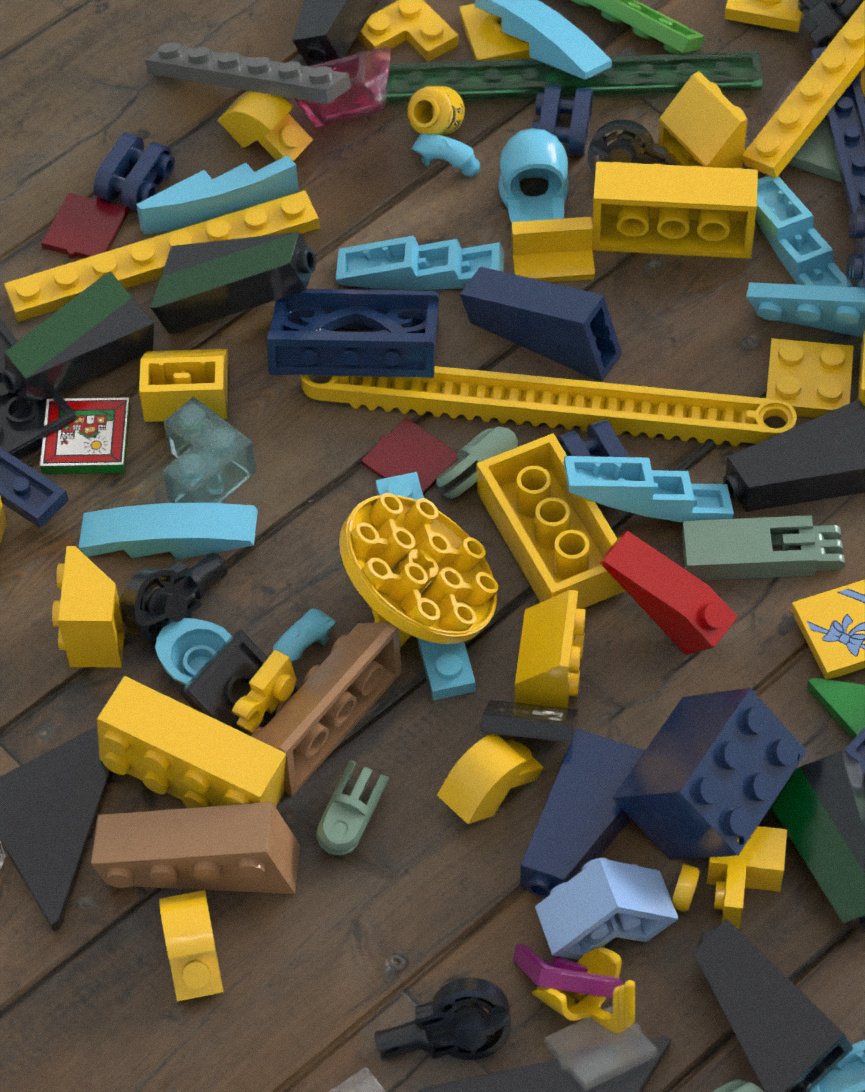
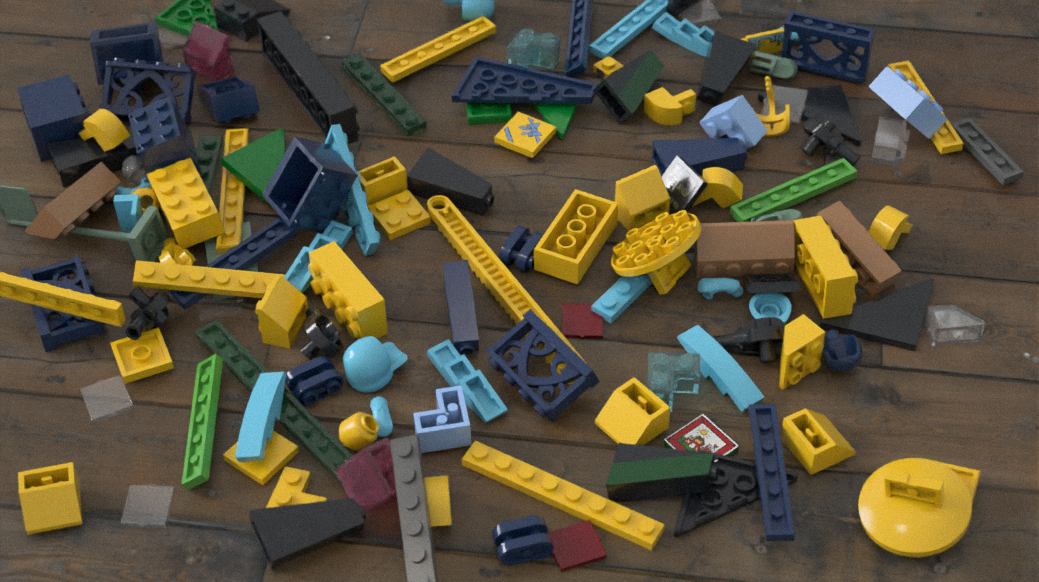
camera: 130 degrees left, 10 degrees down
(48, 677) = (842, 352): none -> dark blue hair
(206, 198) = (510, 492): medium azure slope -> none
(228, 277) = (560, 431): slope -> none
(268, 687) = (763, 263): yellow plate -> none
(361, 191) = (446, 426): none -> light blue brick
(393, 895) = (794, 191): none -> bright green plate
(481, 447) = (566, 287): sand green arm -> none
(553, 249) = (407, 338): yellow panel -> none
(563, 974) = (775, 123): magenta tile -> none
(637, 489) = (527, 212): medium azure slope -> none
(669, 594) = (576, 171): red slope -> none
(685, 887) = (694, 116): yellow tile -> none
(710, 774) = (652, 111): dark blue container -> none
(744, 547) = (515, 182): sand green hinge -> none

